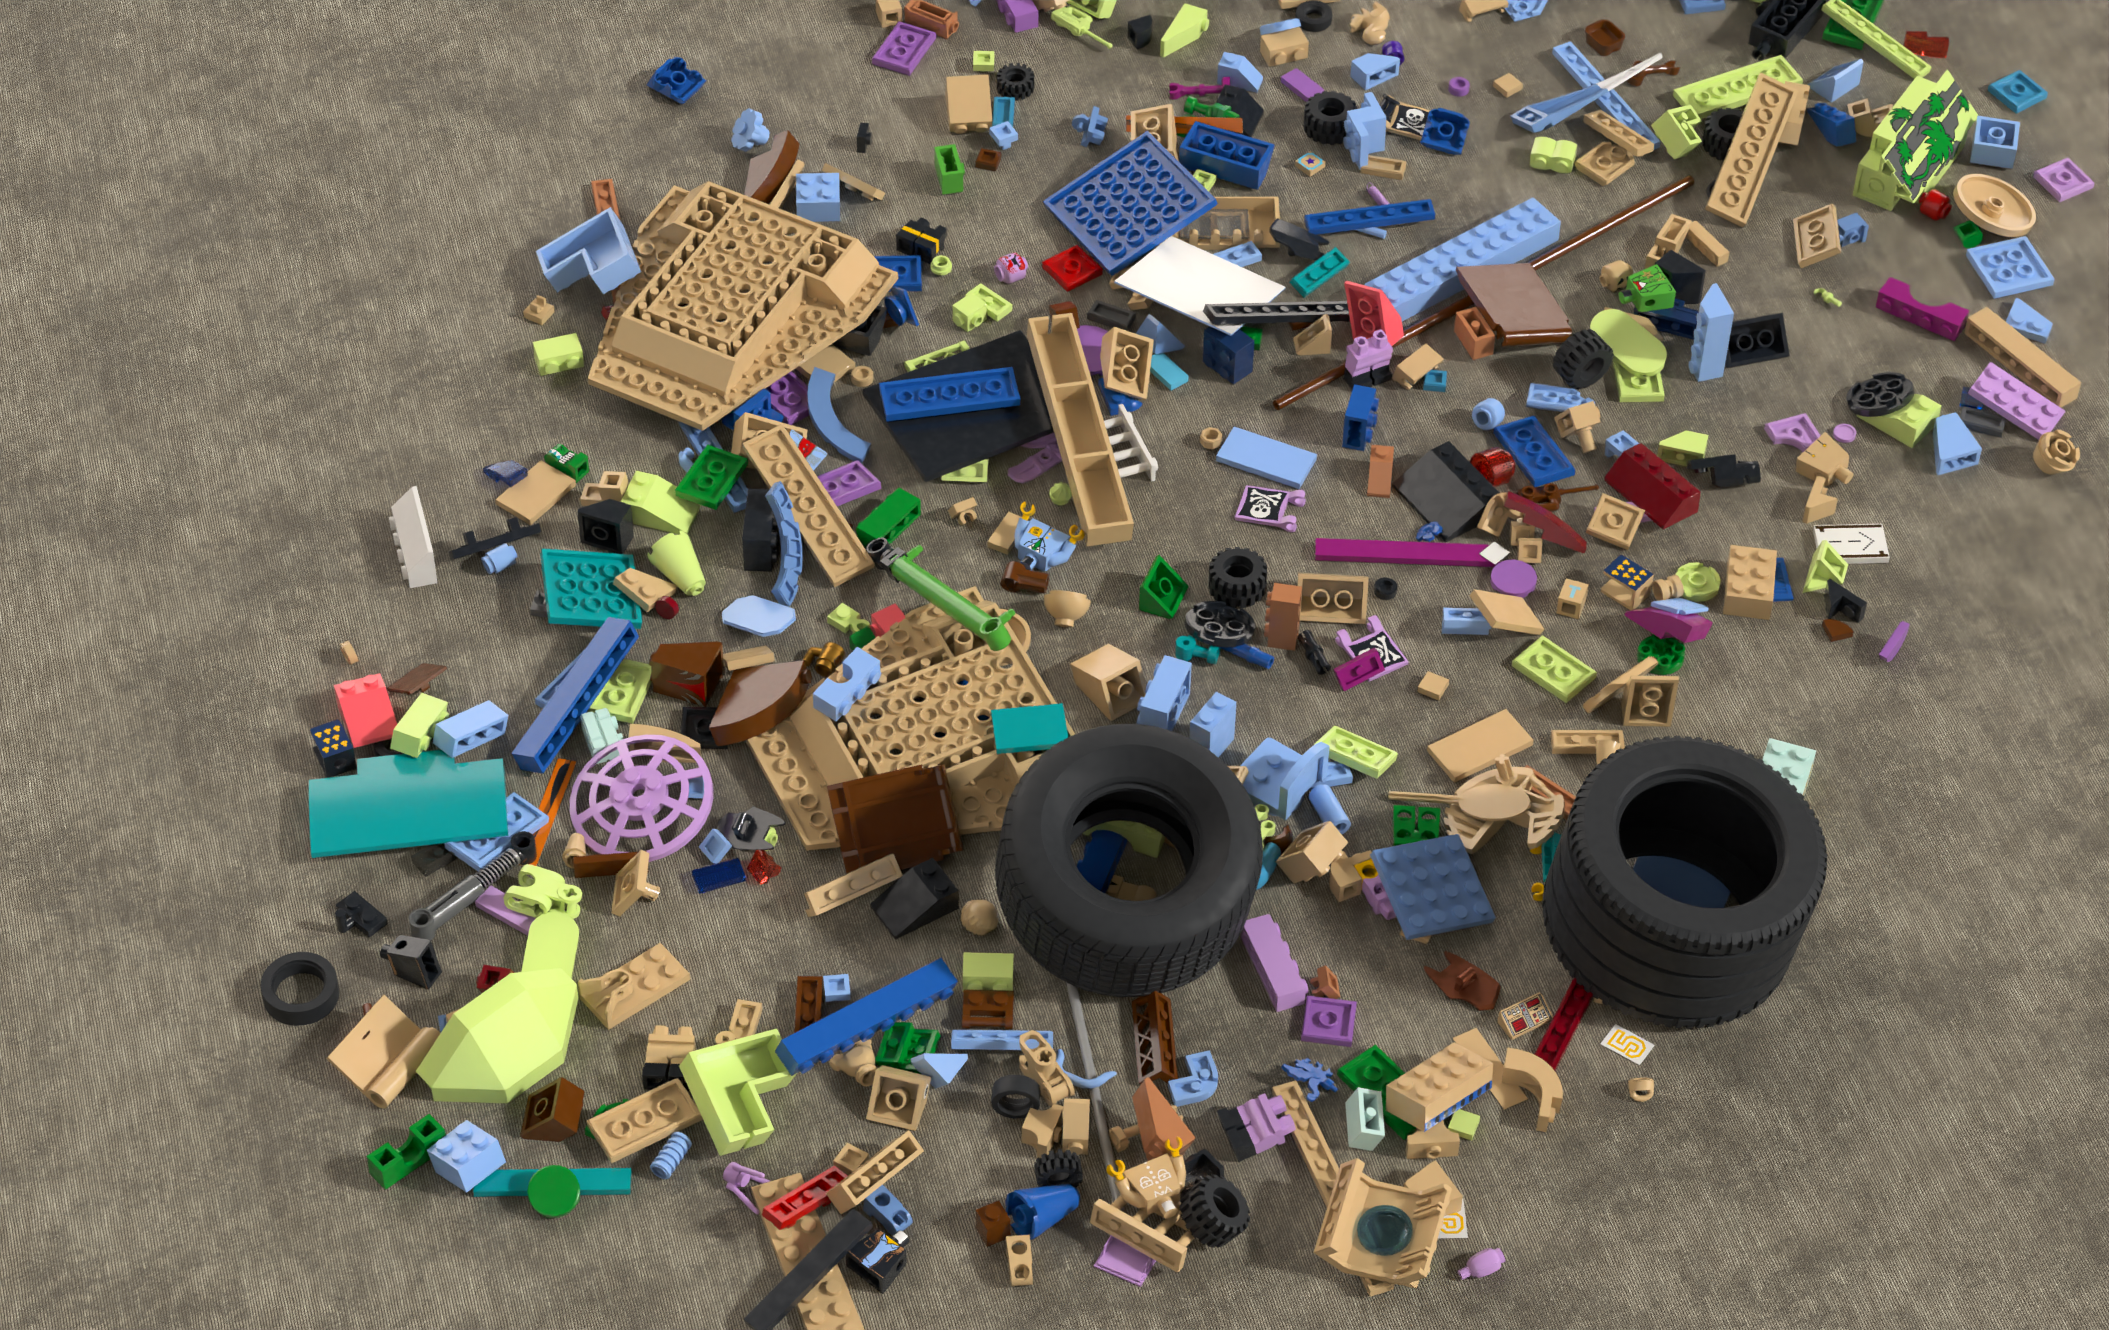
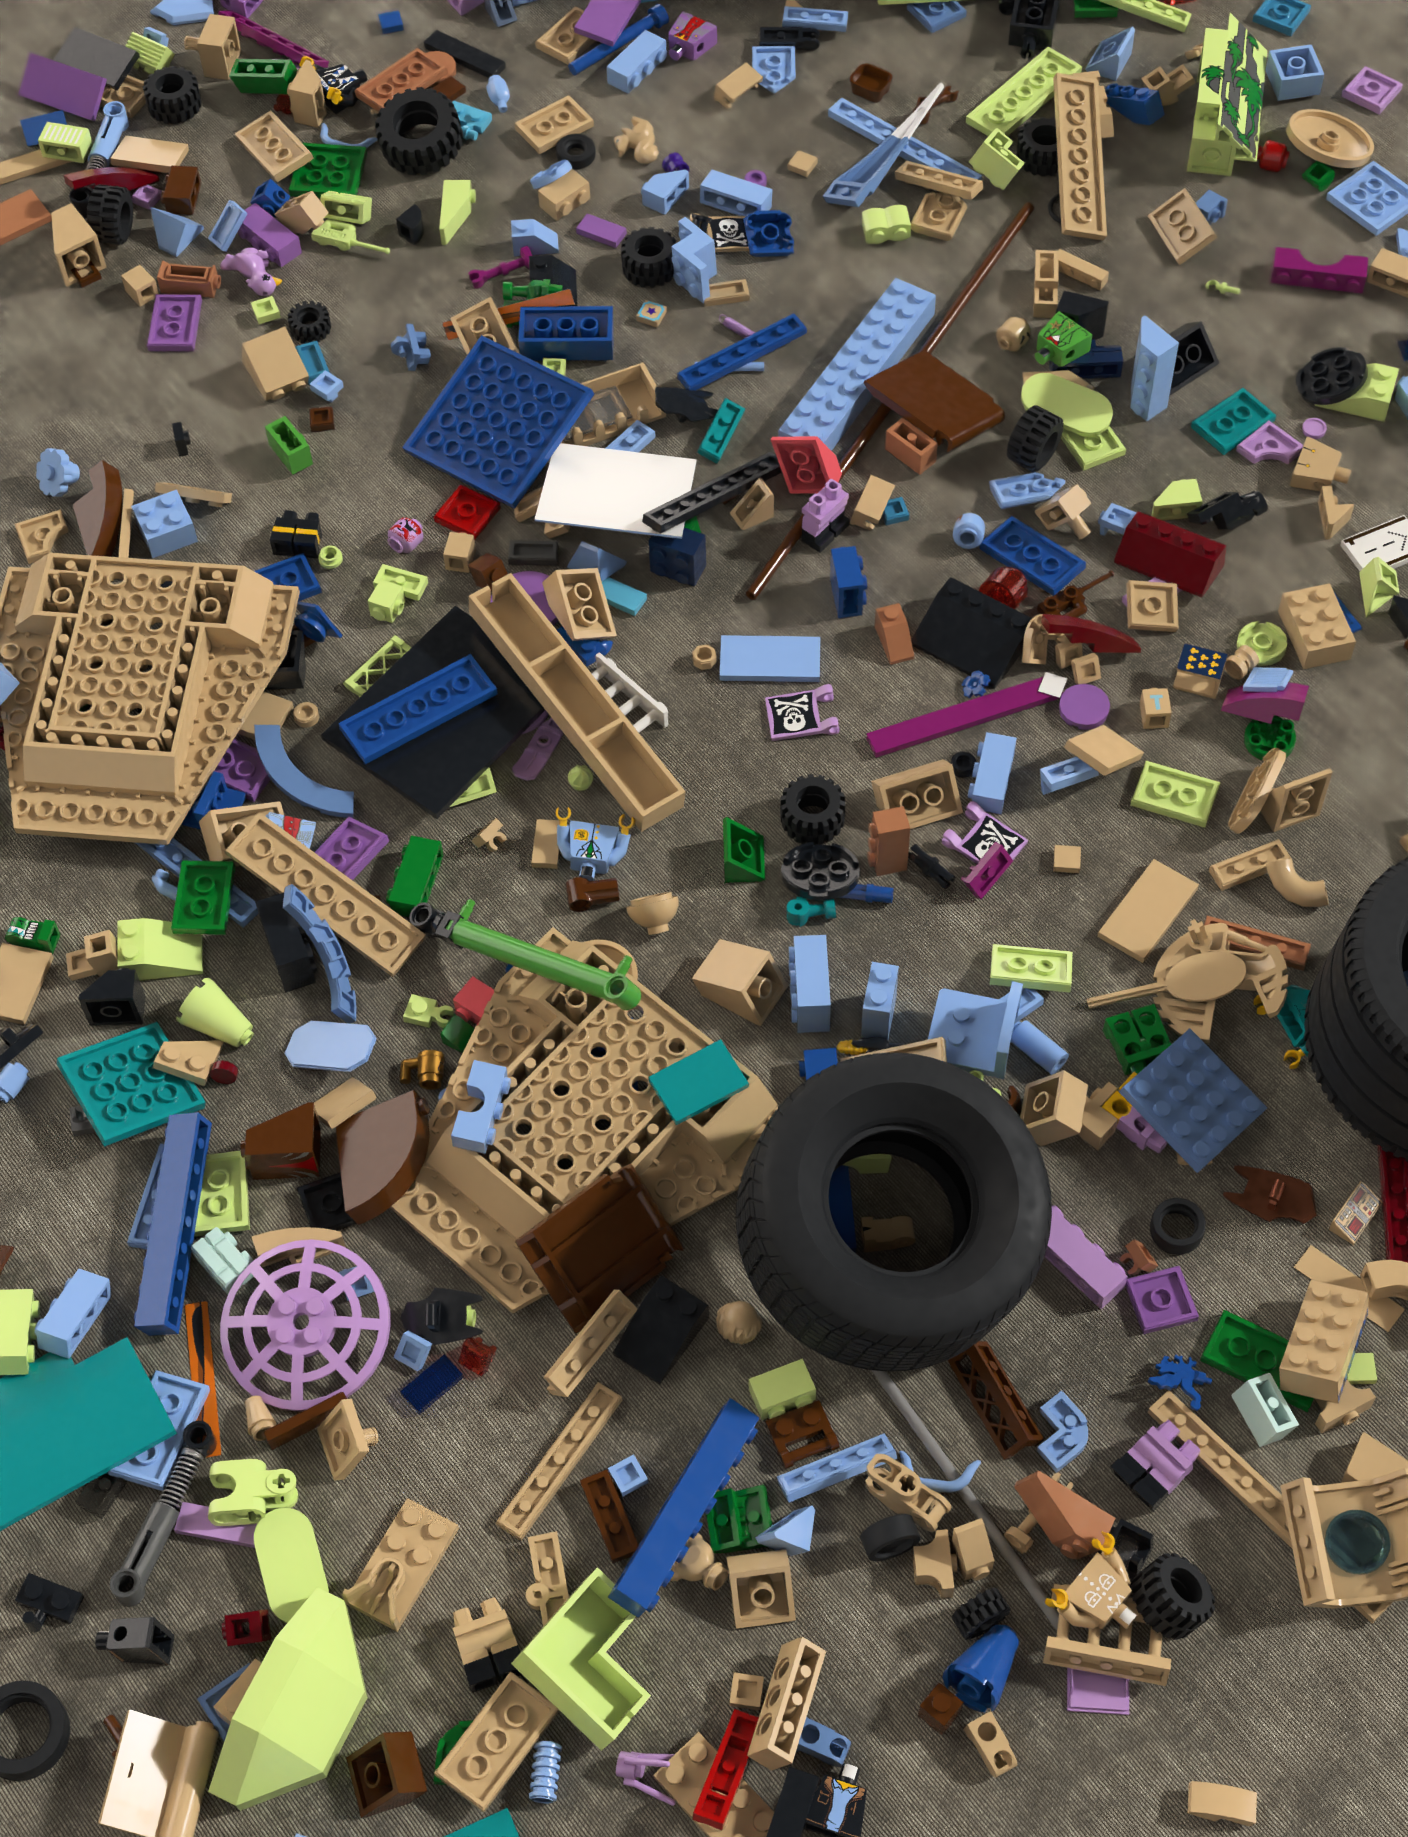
camera: 20 degrees left, 10 degrees up
(717, 172) = (40, 533): none -> tan tile
(790, 961) = (559, 1461): none -> tan tile
(989, 22) = (252, 266): none -> lavender animal
(1047, 293) = (459, 552): none -> tan brick
(1369, 988) = (1183, 1207): none -> black tyre
(1406, 600) = (992, 772): none -> light blue brick
(1431, 90) = (734, 194): none -> light blue brick
(1773, 403) = (1232, 421): none -> teal tile

